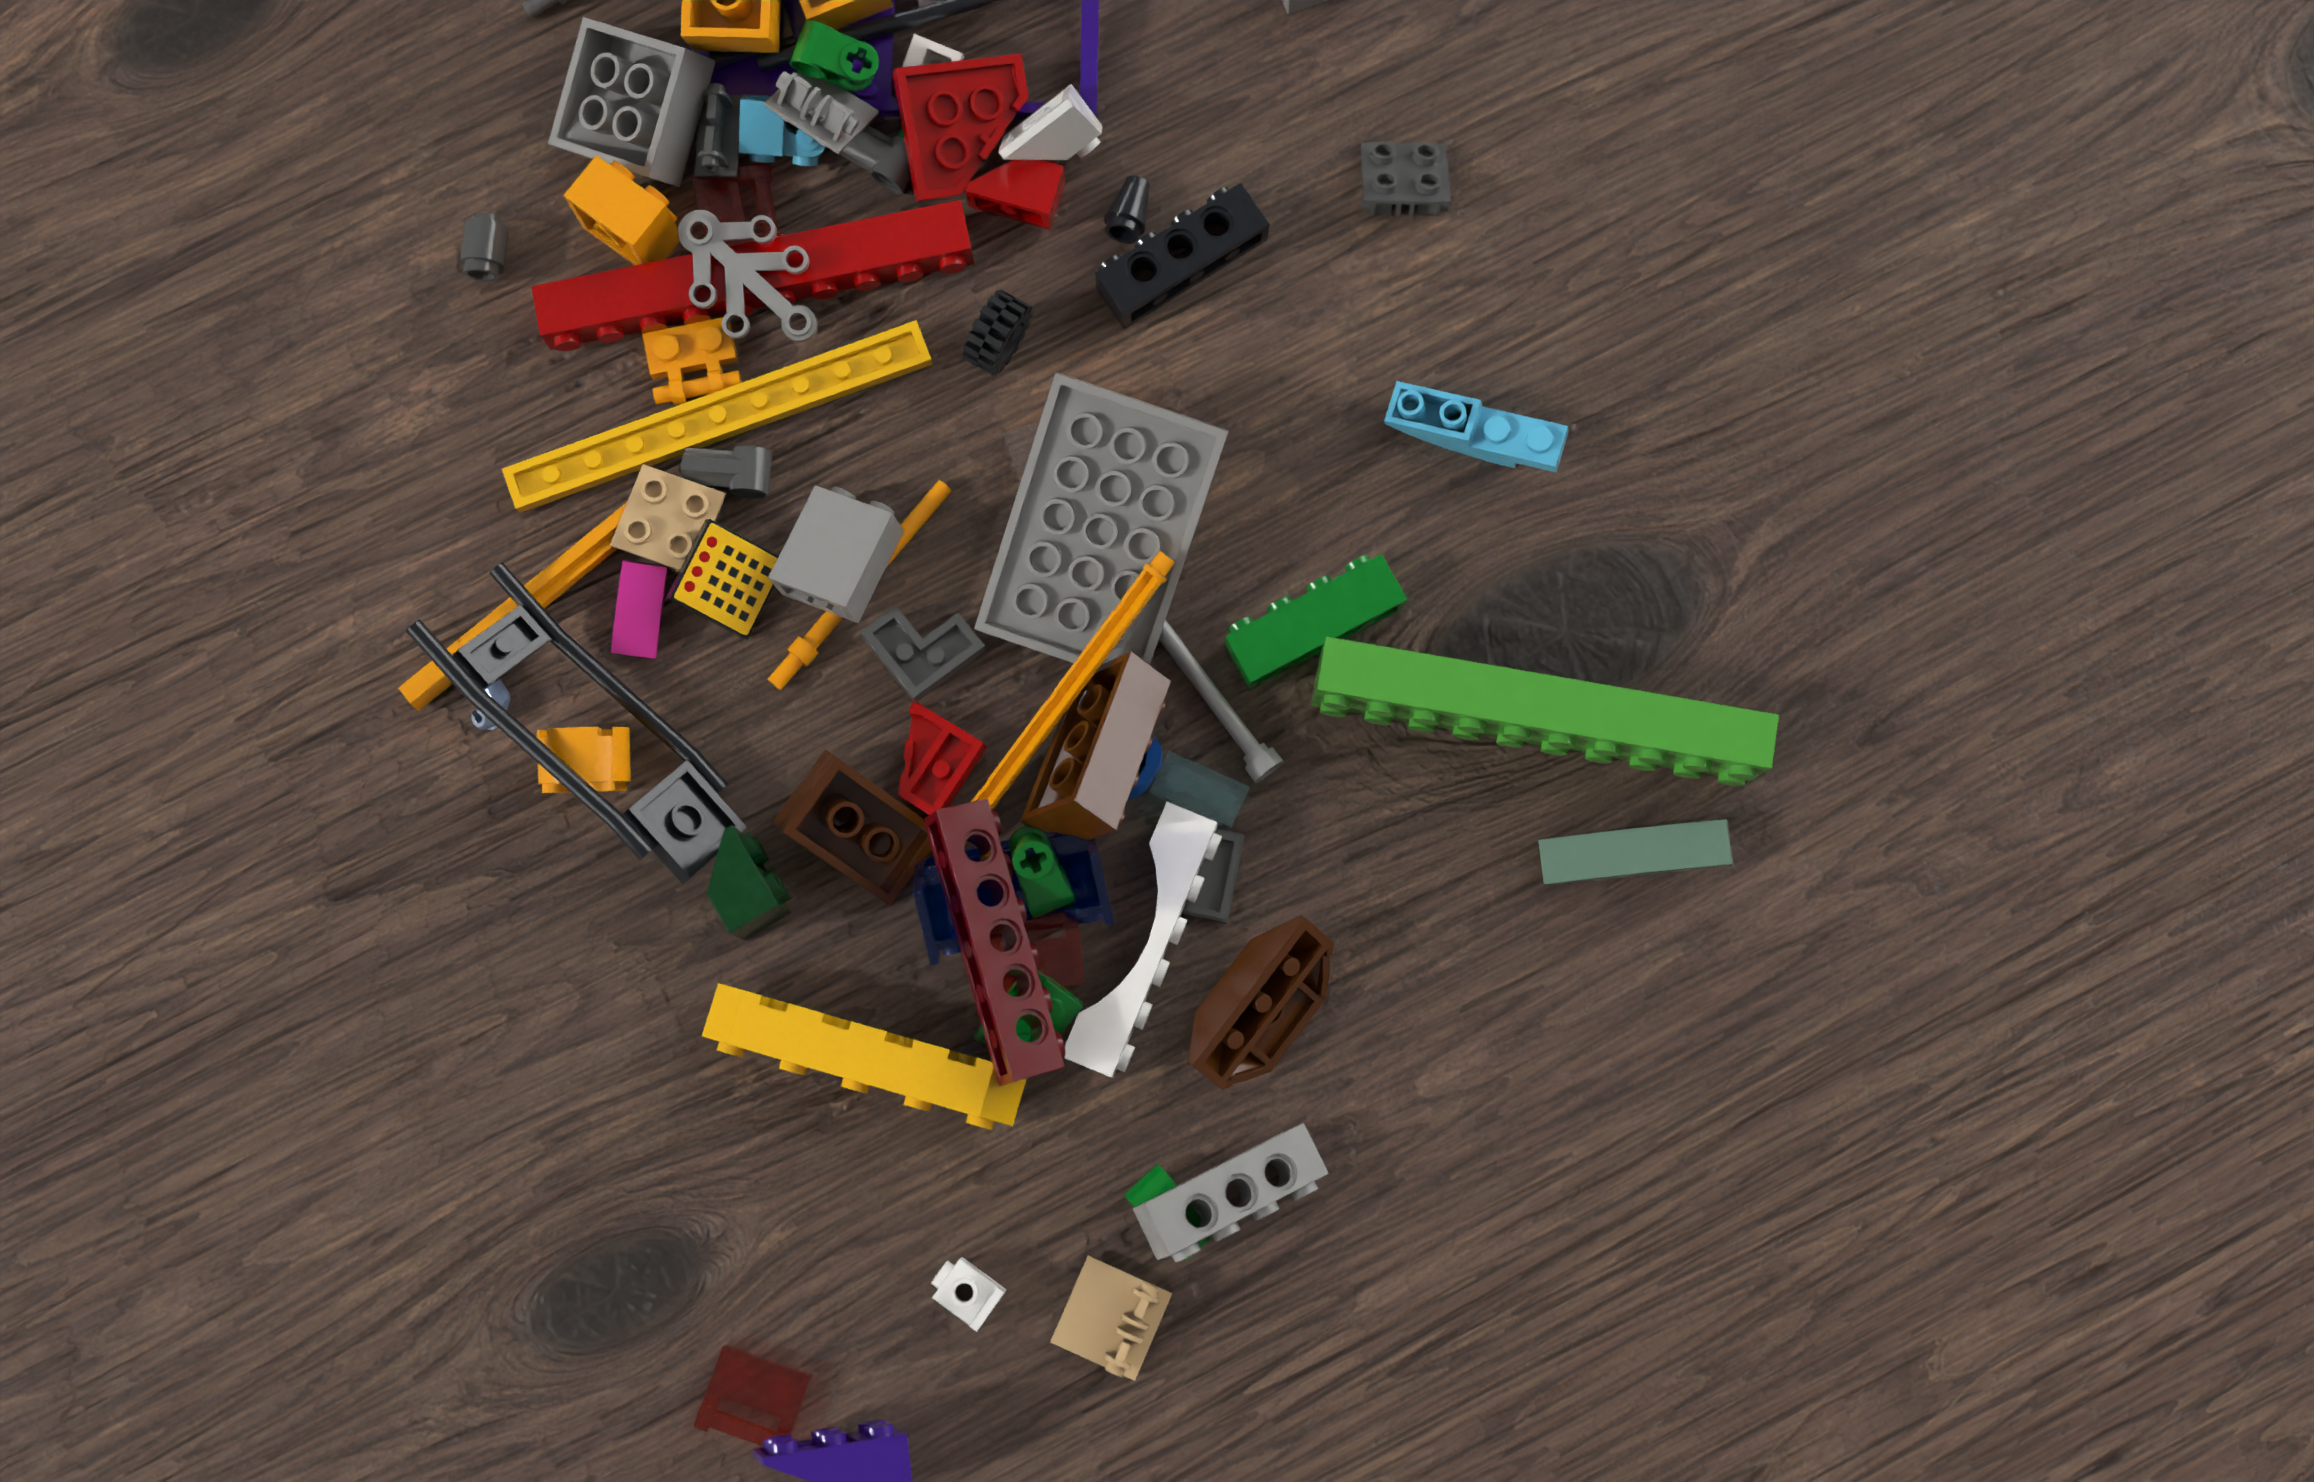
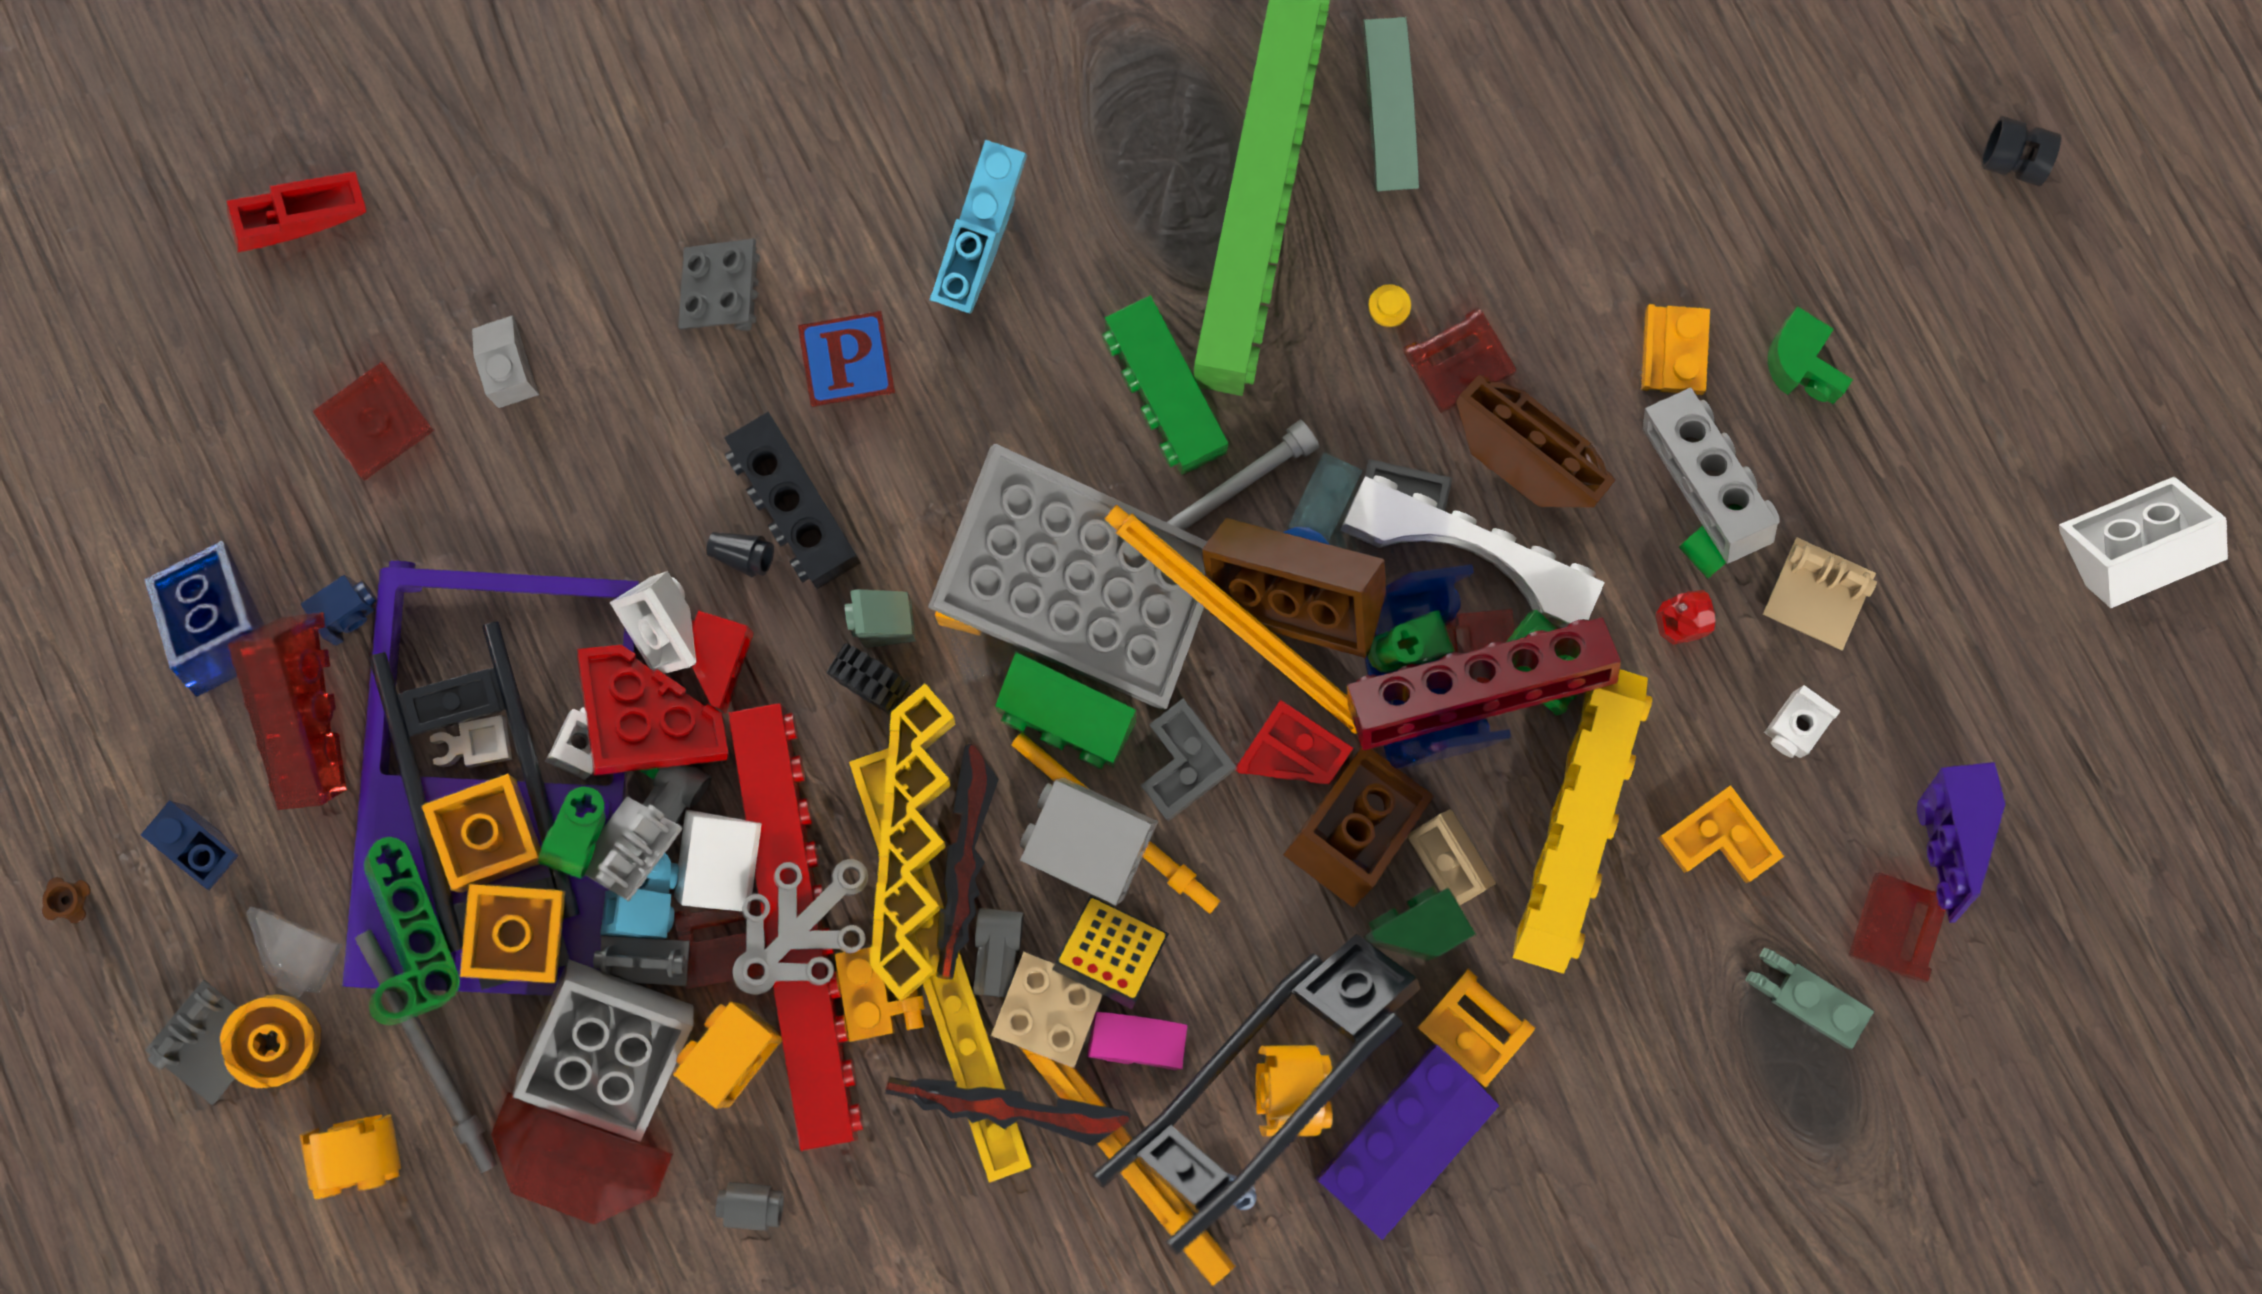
camera: 85 degrees left, 0 degrees up
(523, 89) = (574, 1163): none -> clear red wedge
(535, 878) = (1407, 1141): none -> dark purple slope
(572, 479) = (1004, 1107): none -> black sword
(638, 938) = (1466, 1038): none -> light orange plate
(676, 1304) = (1813, 1000): none -> sand green hinge
(813, 195) = (716, 861): none -> white slope
(815, 434) = (963, 862): none -> black sword
(825, 925) = (1451, 857): none -> tan slope
(828, 370) = (907, 841): none -> yellow brick
(859, 1208) = (1723, 825): none -> light orange plate
(967, 527) = (1065, 712): none -> green slope
(1060, 340) = (880, 617): none -> sand green slope
(1079, 1167) = (1686, 617): none -> red rock
(1331, 302) = (846, 359): none -> piece
(1352, 950) = (1455, 374): none -> clear red plate
(1372, 1292) = (1794, 359): none -> green brick
(1377, 1164) = (1675, 349): none -> light orange plate
(1412, 854) = (1389, 305): none -> yellow plate

